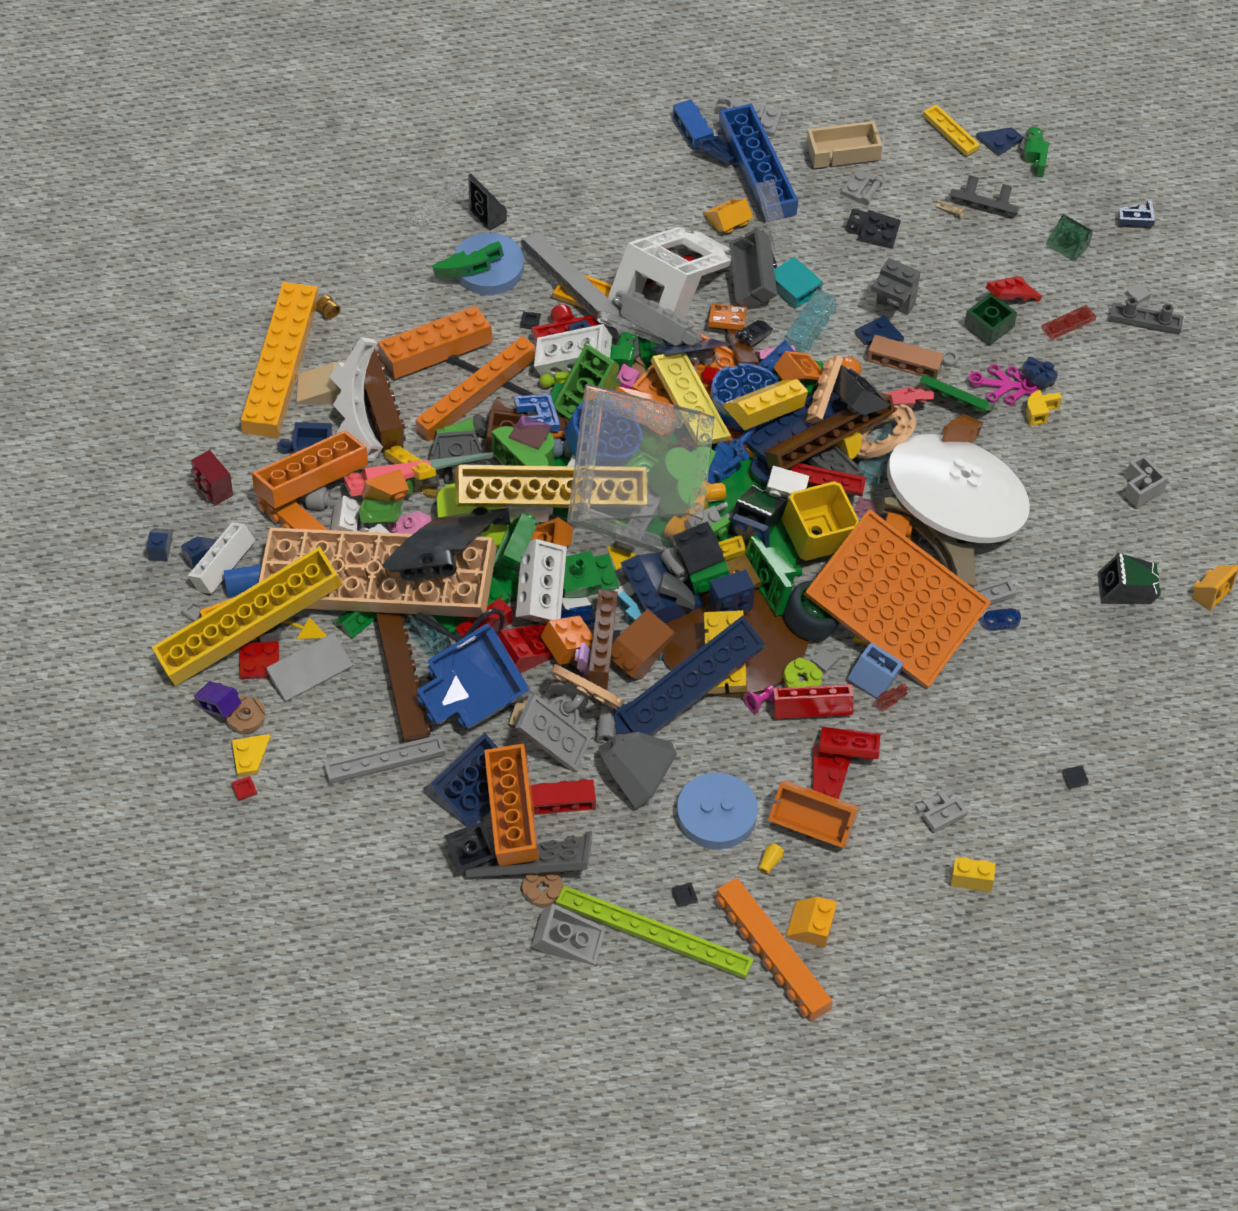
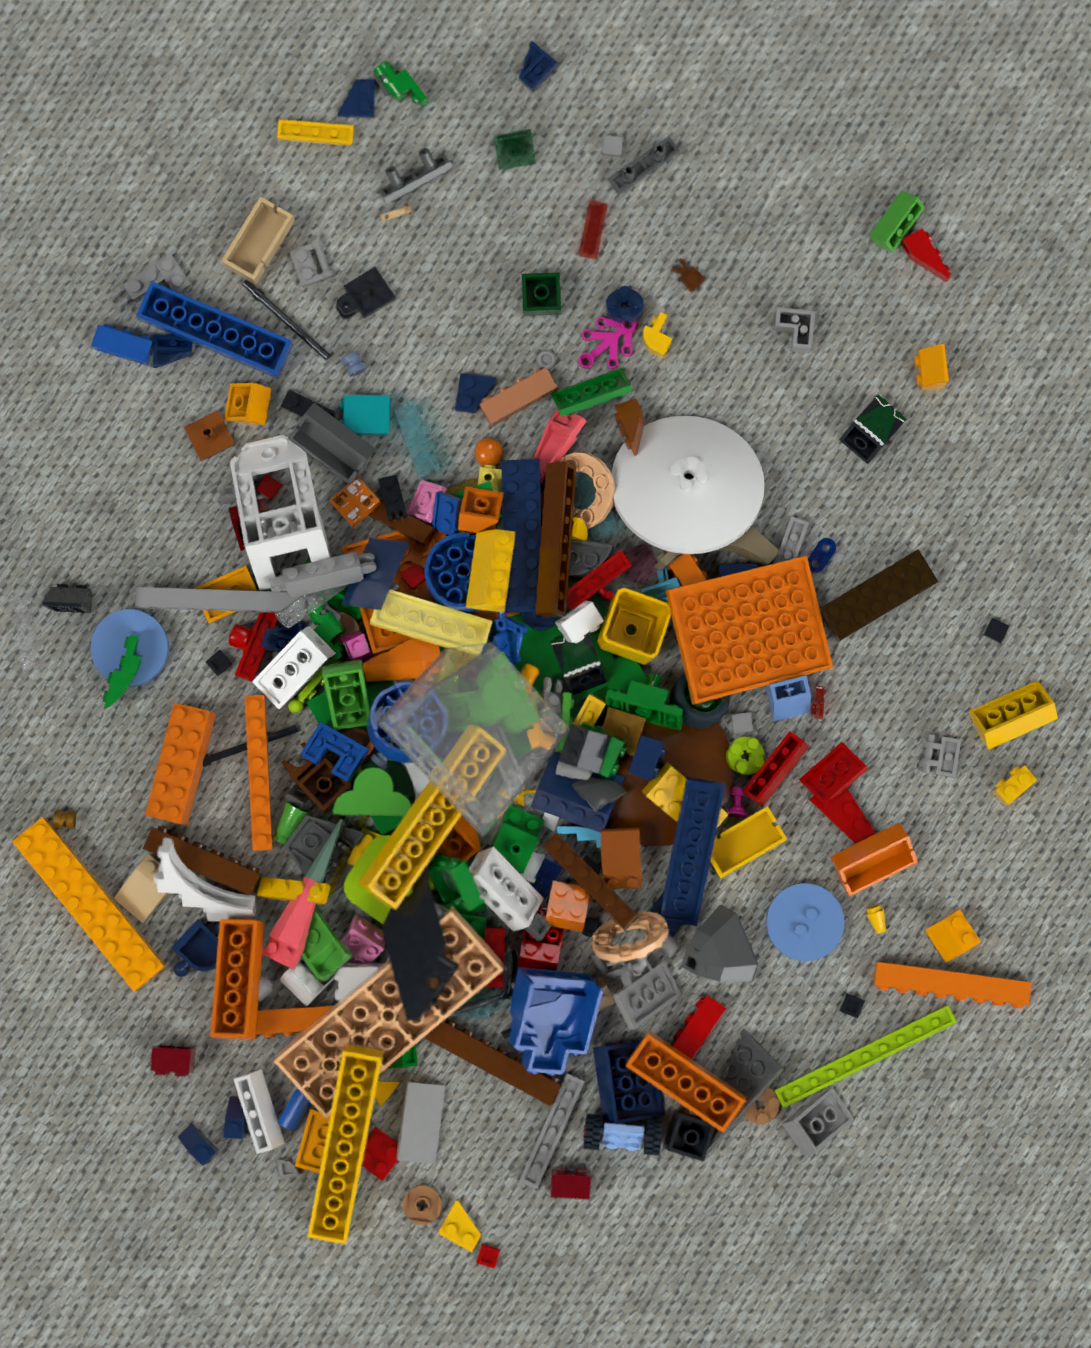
camera: 50 degrees left, 30 degrees up
(217, 699) = (395, 1219): dark purple brick -> none
(354, 793) = (570, 1183): none -> dark red piece
(386, 487) = (319, 943): orange slope -> none
(426, 802) = (623, 1136): none -> plate
(530, 432) = (361, 784): clear pink piece -> none
(534, 626) = (538, 927): none -> dark grey plate
(583, 657) = (597, 913): lavender slope -> none
(683, 211) = (209, 435): none -> dark orange tile
(736, 722) = (745, 842): none -> yellow piece
(748, 528) = (599, 685): dark blue wing -> none
(774, 215) = (288, 373): clear tile -> none
(808, 174) = (260, 296): none -> black bar
(821, 252) = (354, 364): none -> sand blue wheel
(824, 390) = (518, 512): light nougat plate -> none
(857, 392) = (544, 488): black slope -> none
(897, 285) = (453, 348): dark grey brick -> none
(1011, 288) = (527, 247): red wing -> none
(1013, 675) = (878, 595): none -> dark brown brick
(1025, 835) = (1013, 714): none -> yellow slope
(1104, 399) = (690, 277): none -> reddish brown plate

